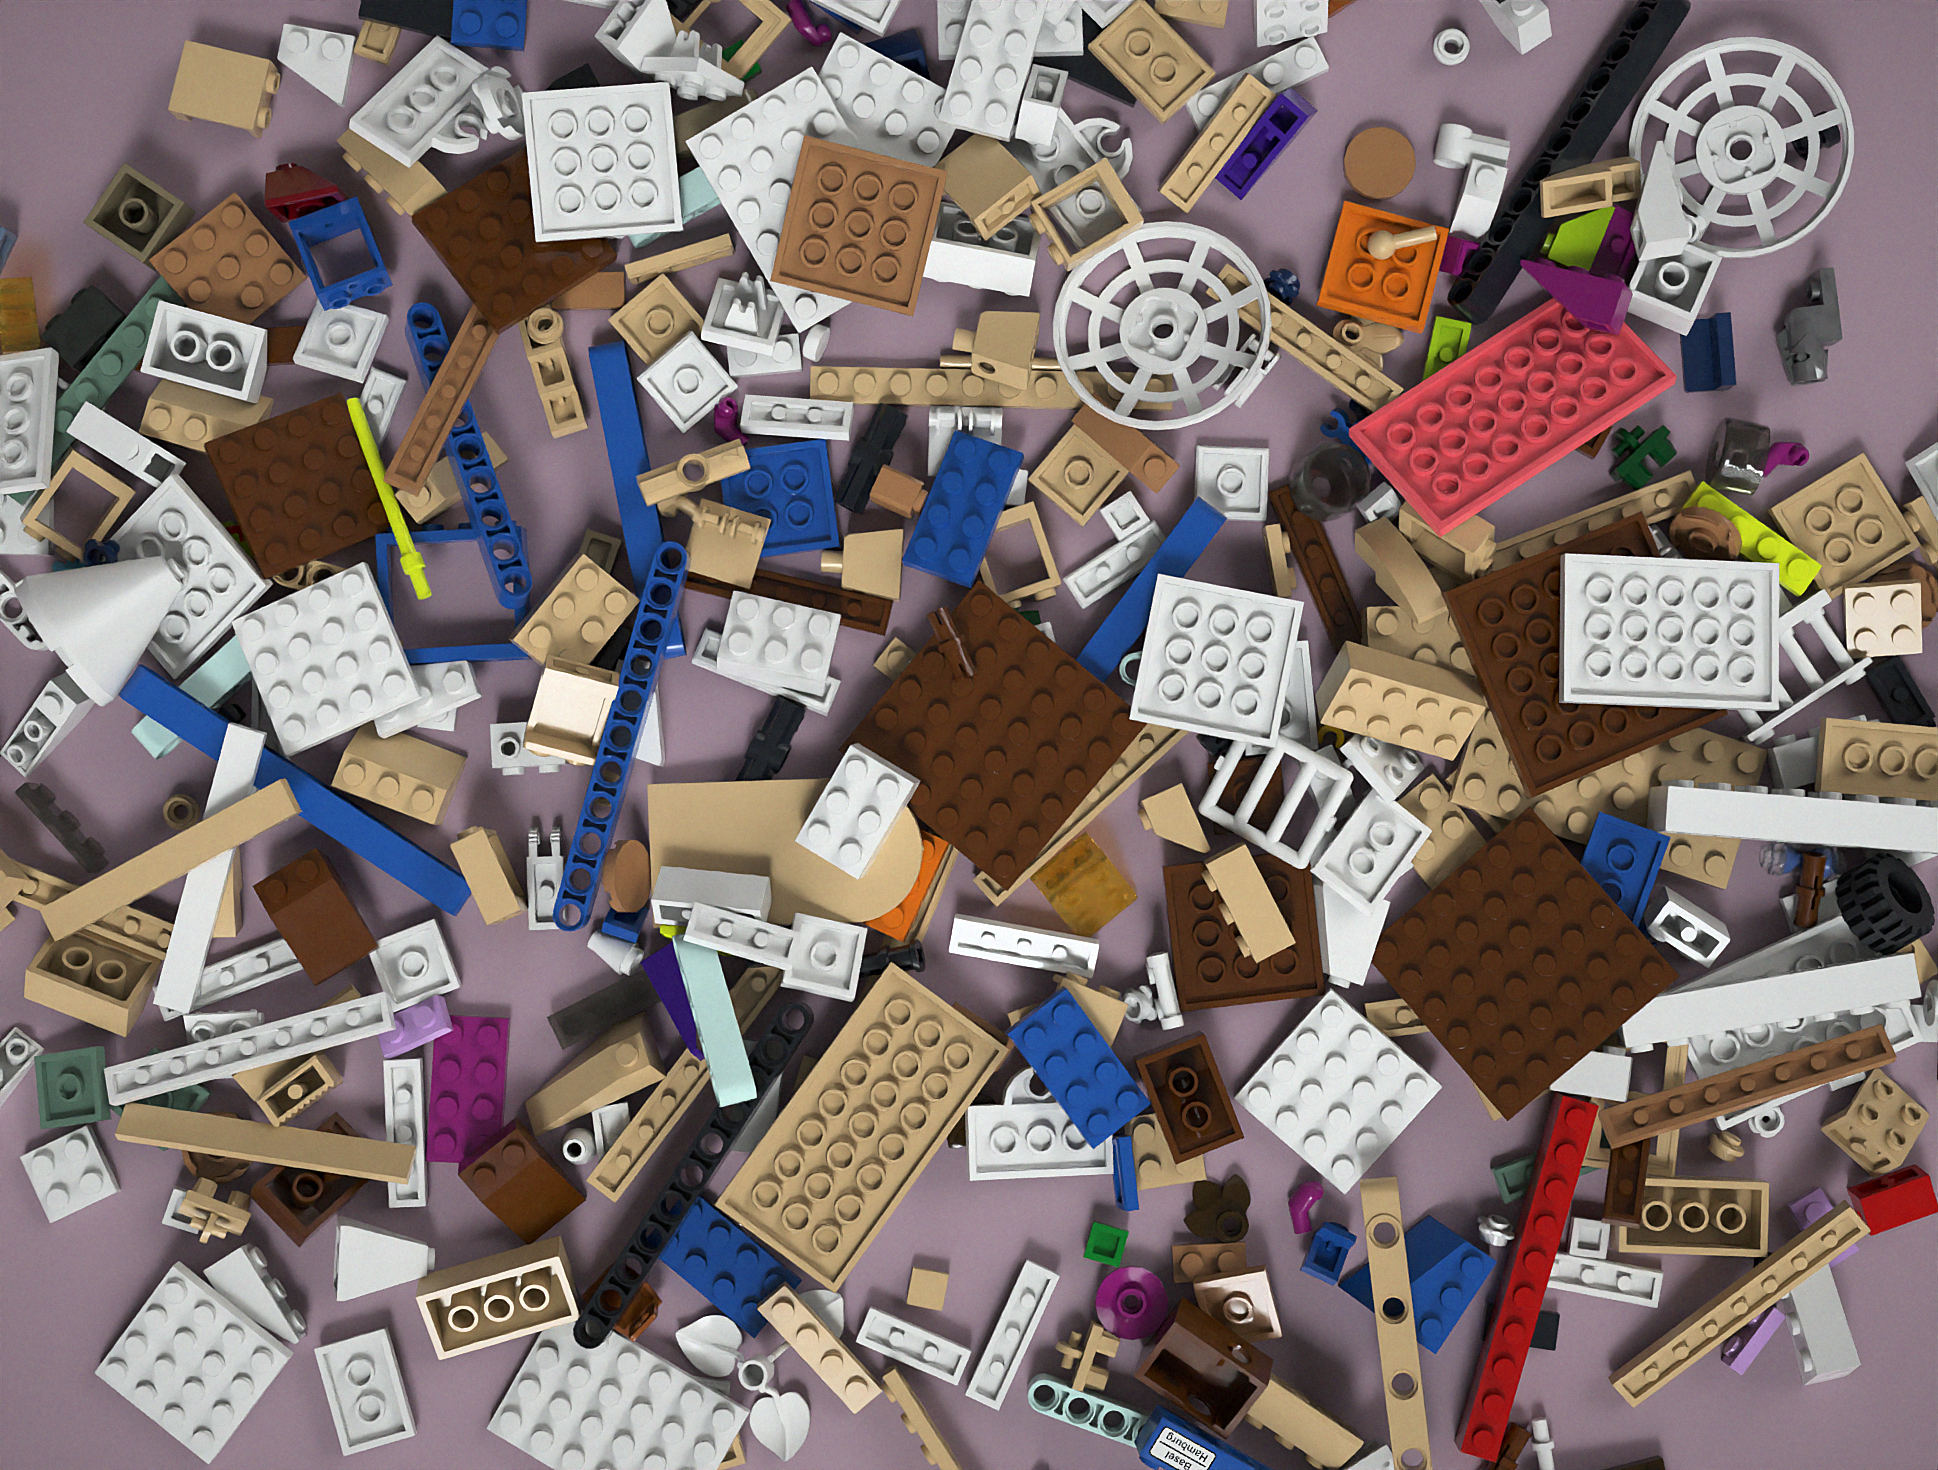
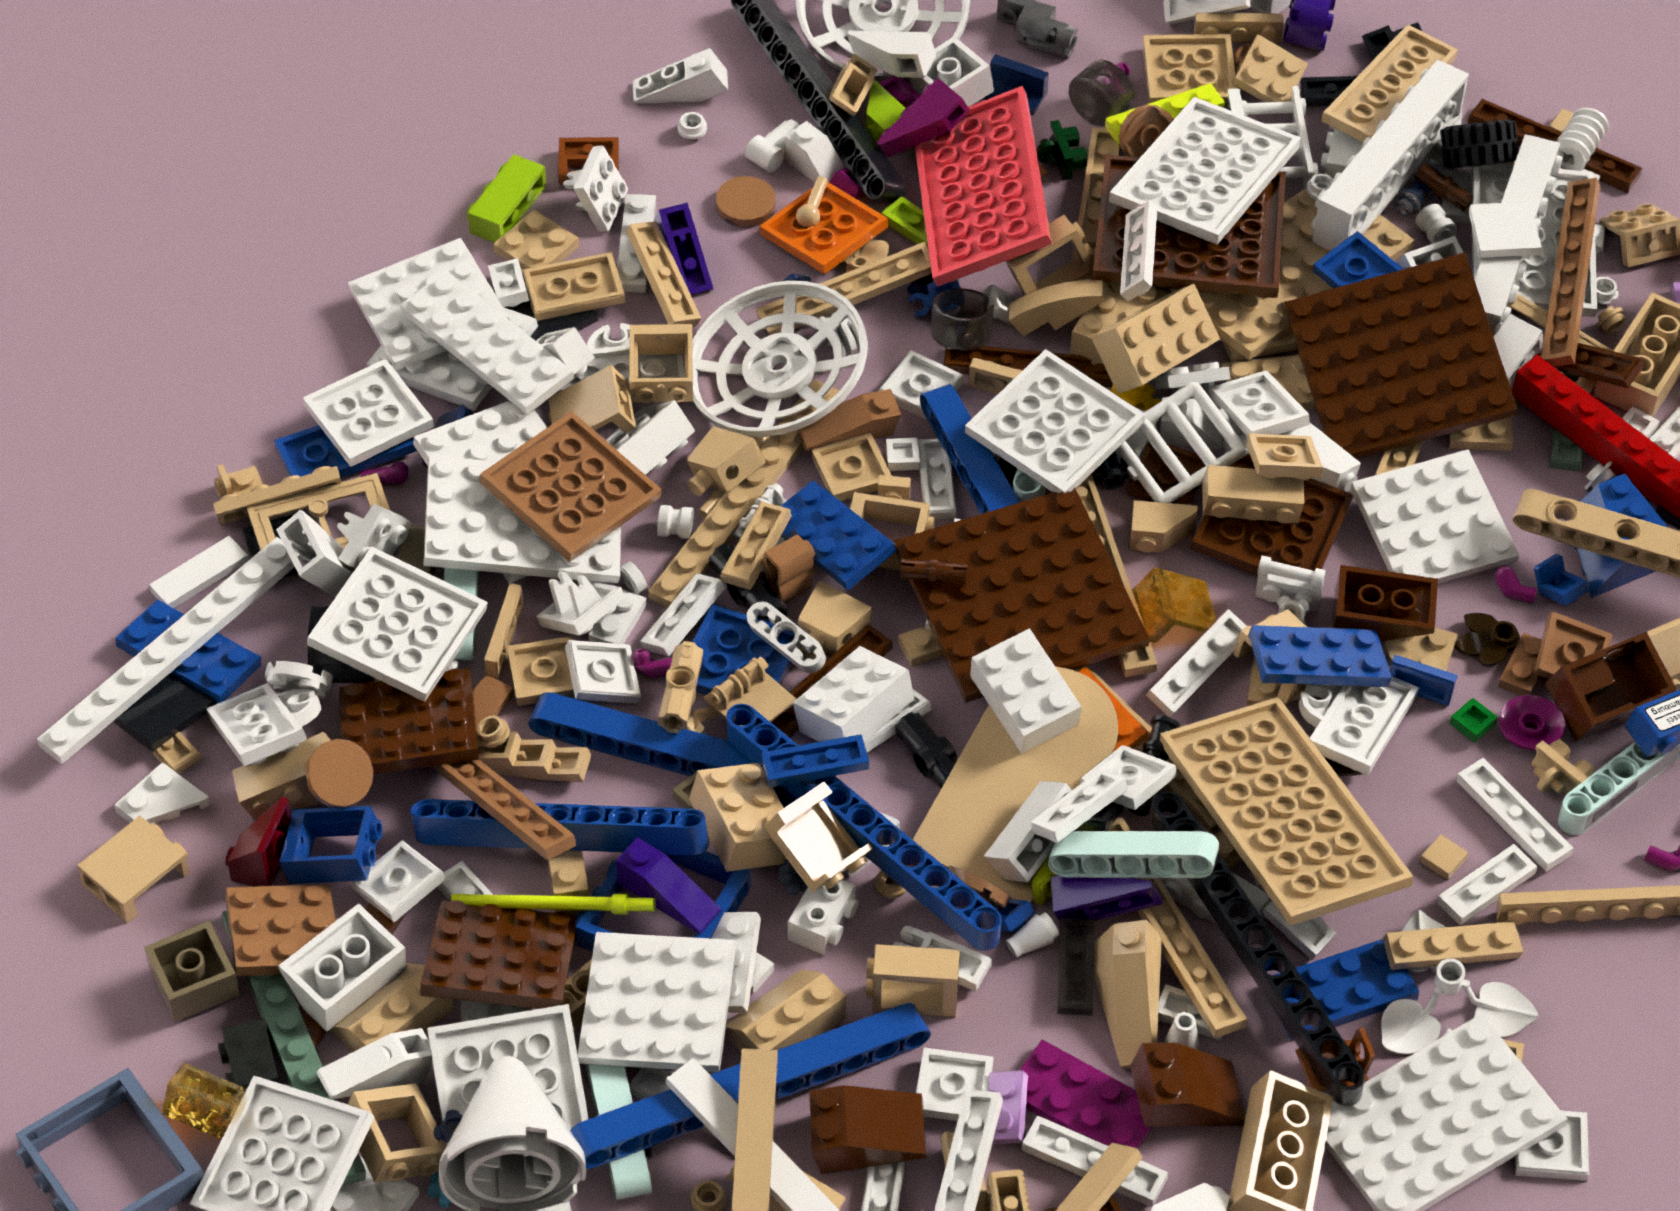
camera: 65 degrees left, 35 degrees down
(394, 220) = (339, 773): none -> medium nougat tile
(451, 596) = (656, 876): none -> dark purple slope
(646, 661) = (815, 760): none -> blue plate
(832, 513) = (790, 650): none -> white beam
(906, 444) = (759, 536): none -> tan tile
(908, 343) = (675, 521): none -> white wheel
(1067, 535) = (894, 487): none -> tan plate
(1300, 916) = (1284, 456): none -> tan plate
(1491, 629) = (1138, 251): none -> white plate
(1740, 765) = (1317, 184): none -> white plate
(1750, 998) = (1505, 229): none -> white tile
(1758, 902) = (1435, 224): none -> white wheel

